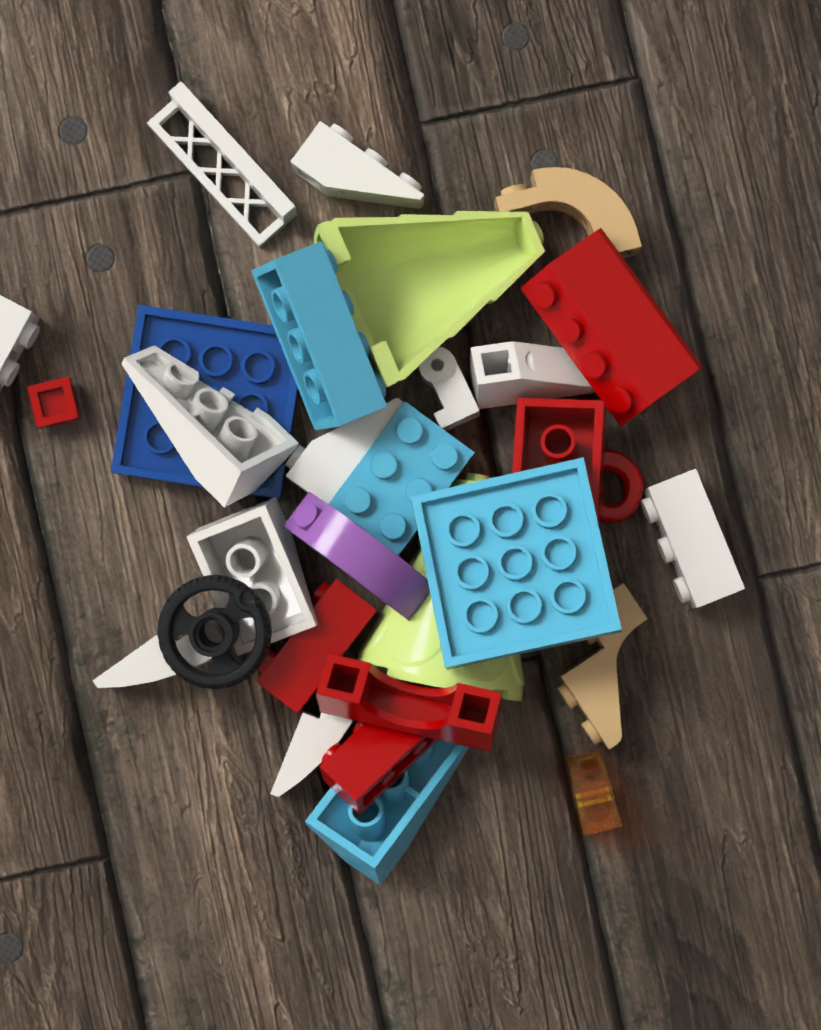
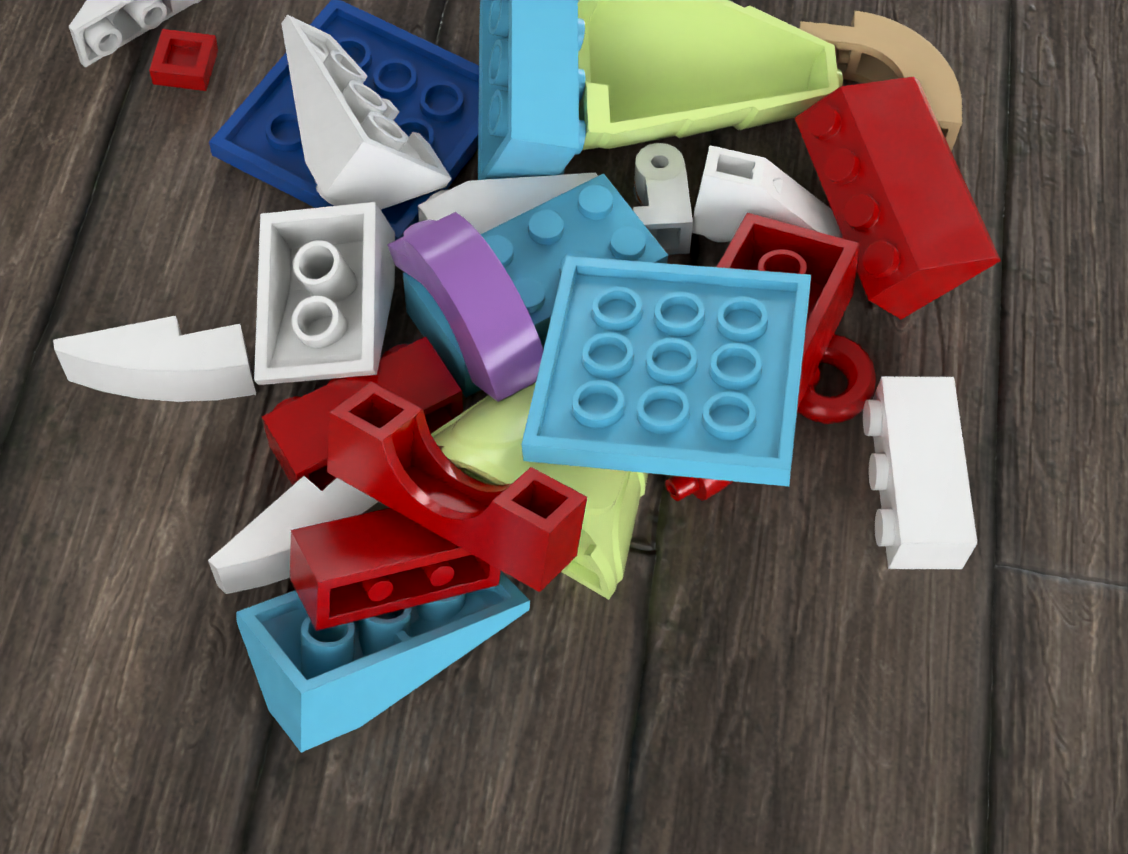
camera: 20 degrees right, 25 degrees down
(176, 621) = (225, 303): black wheel -> none
(592, 793) = (662, 753): clear orange leg -> none
(594, 680) = (717, 591): tan arch -> none

